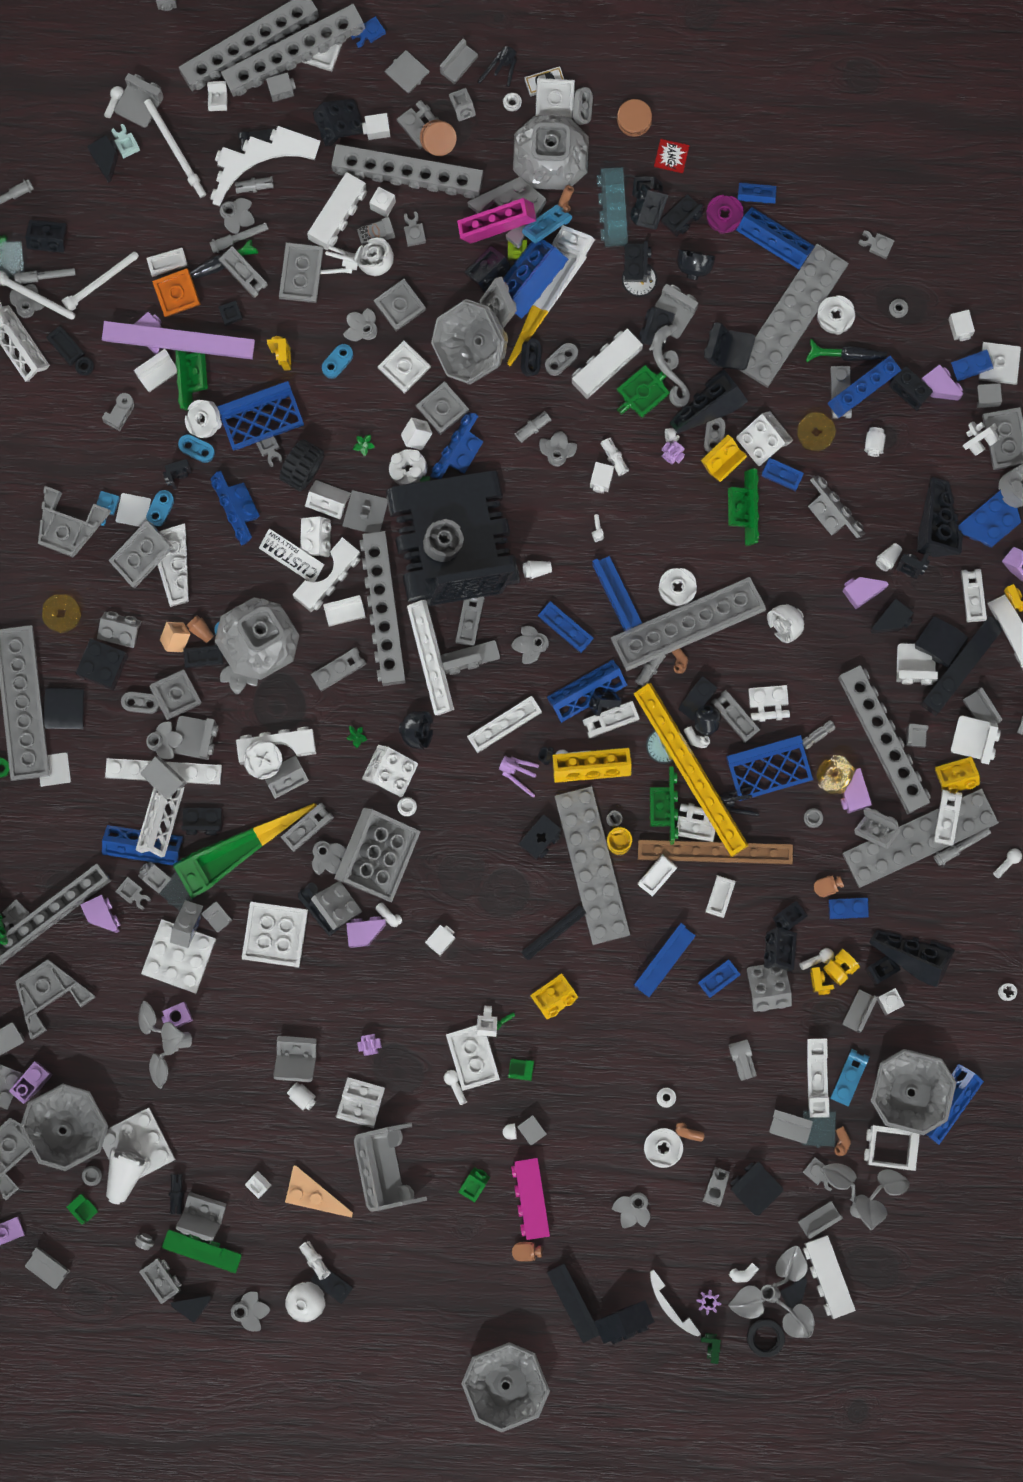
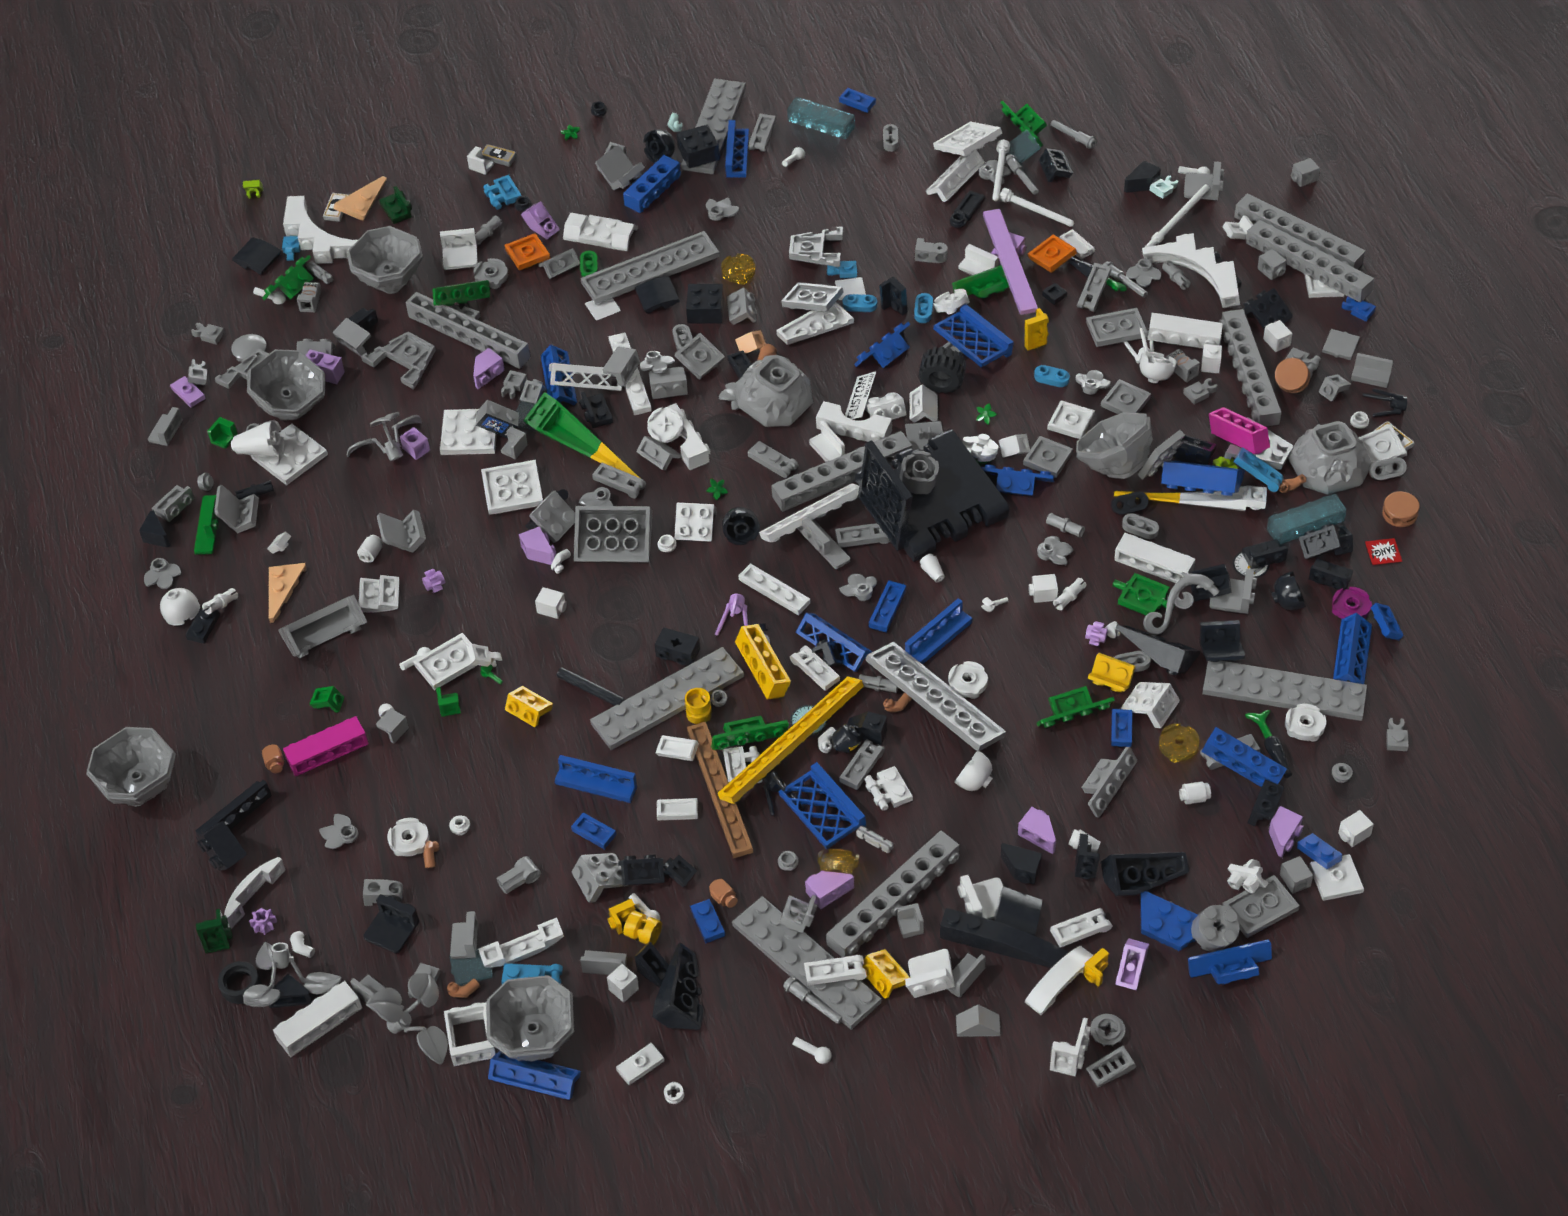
camera: 70 degrees right, 30 degrees down
(969, 1011) = (640, 1064): none -> white plate

